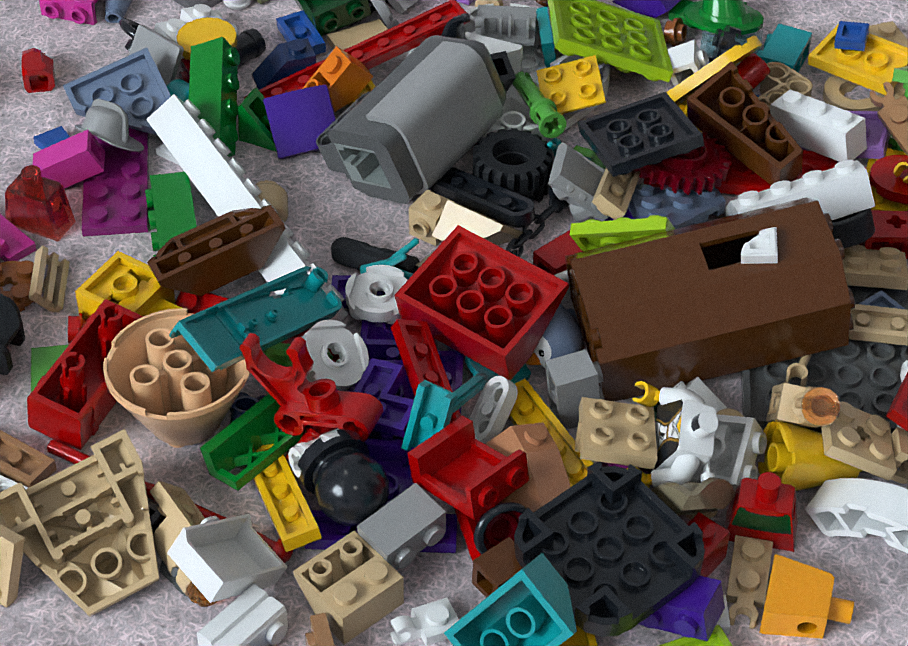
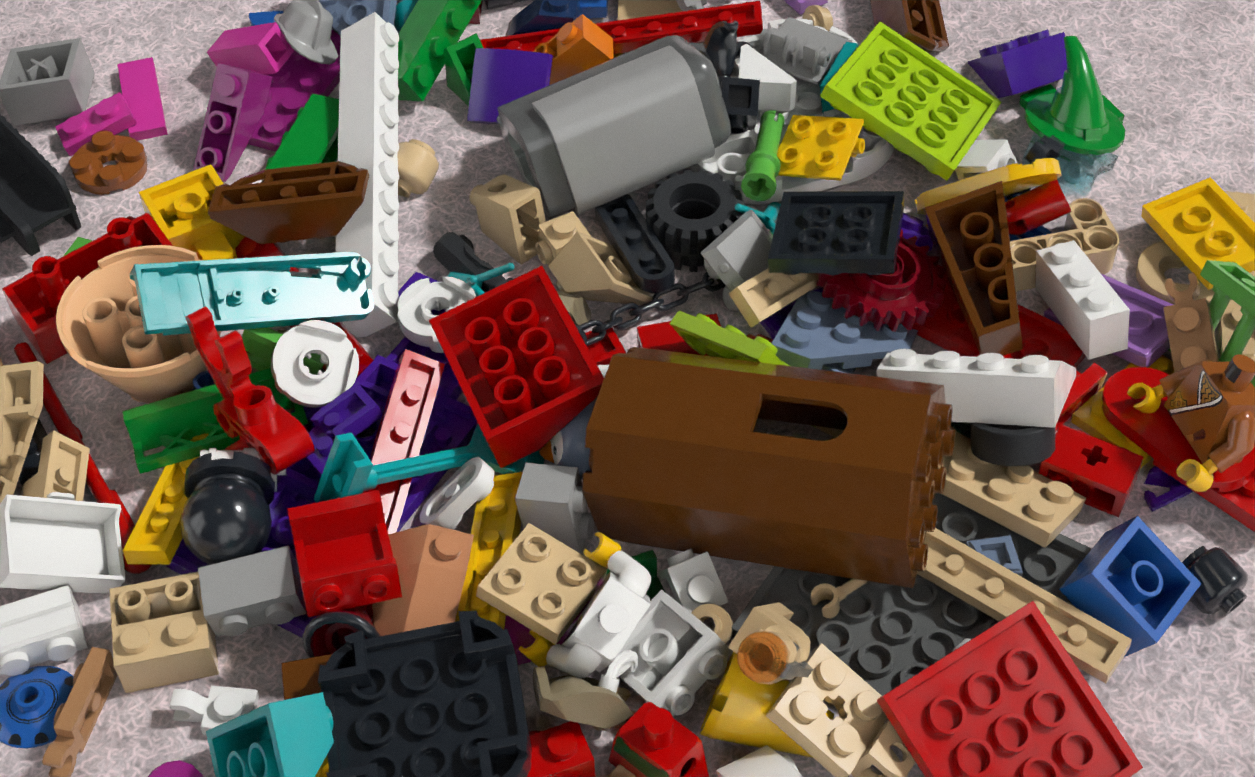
camera: 30 degrees right, 5 degrees up
(38, 204) = (180, 74): clear red torso -> none
(53, 284) = (164, 151): tan tile -> none
(97, 216) = (231, 117): none -> magenta slope
(375, 209) = (510, 215): none -> tan torso
(675, 32) = (1008, 122): dark orange plate -> none
(761, 248) = (822, 429): white tile -> none
(786, 46) = (1124, 189): teal brick -> none
(851, 36) = (1208, 199): blue tile -> none

